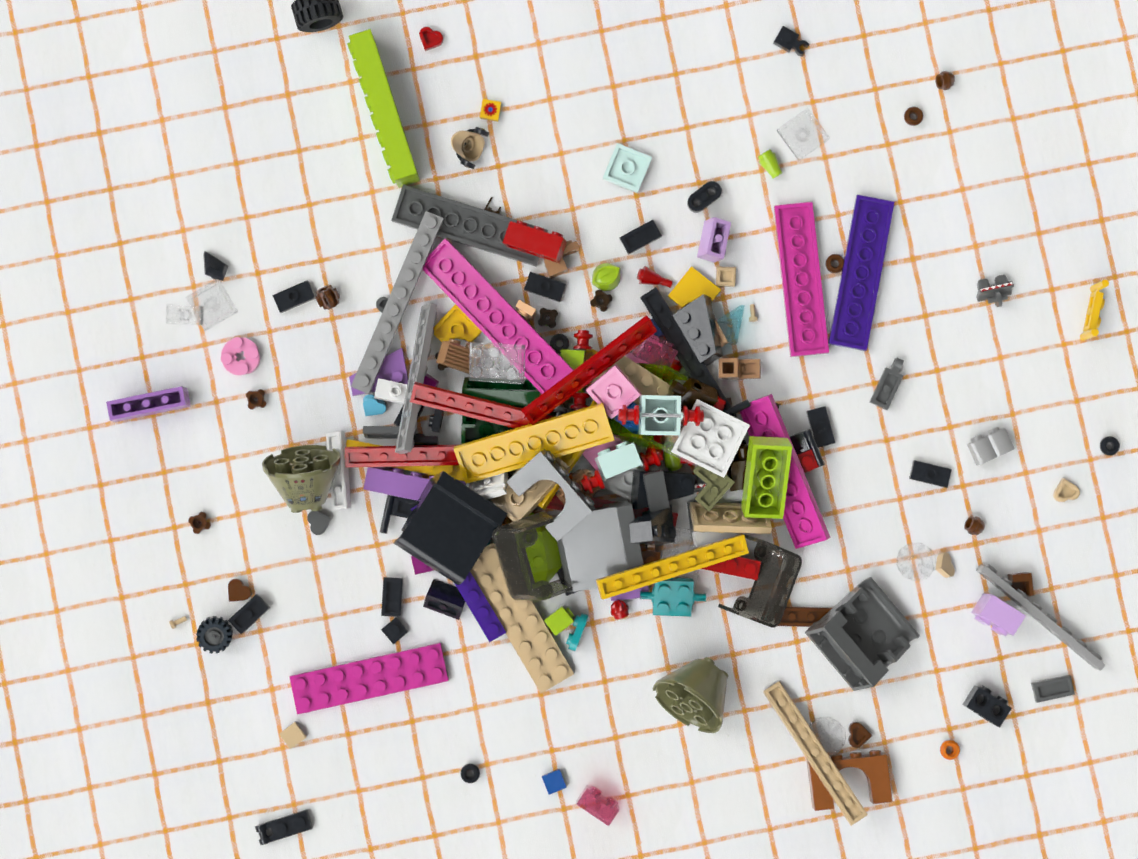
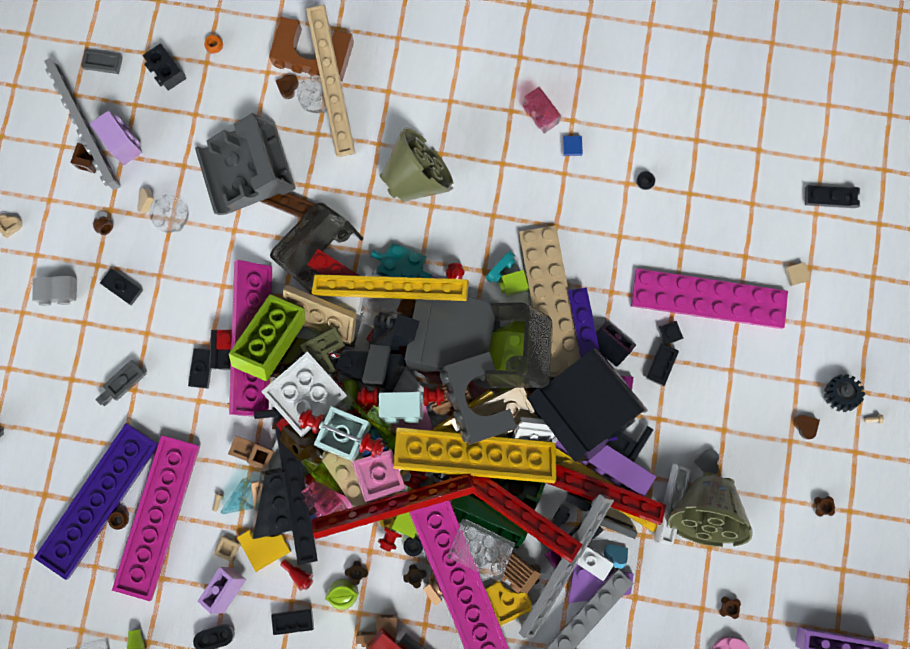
camera: 160 degrees left, 5 degrees down
(249, 614) = (804, 400): black plate -> none
(544, 287) = (405, 608): black plate -> none

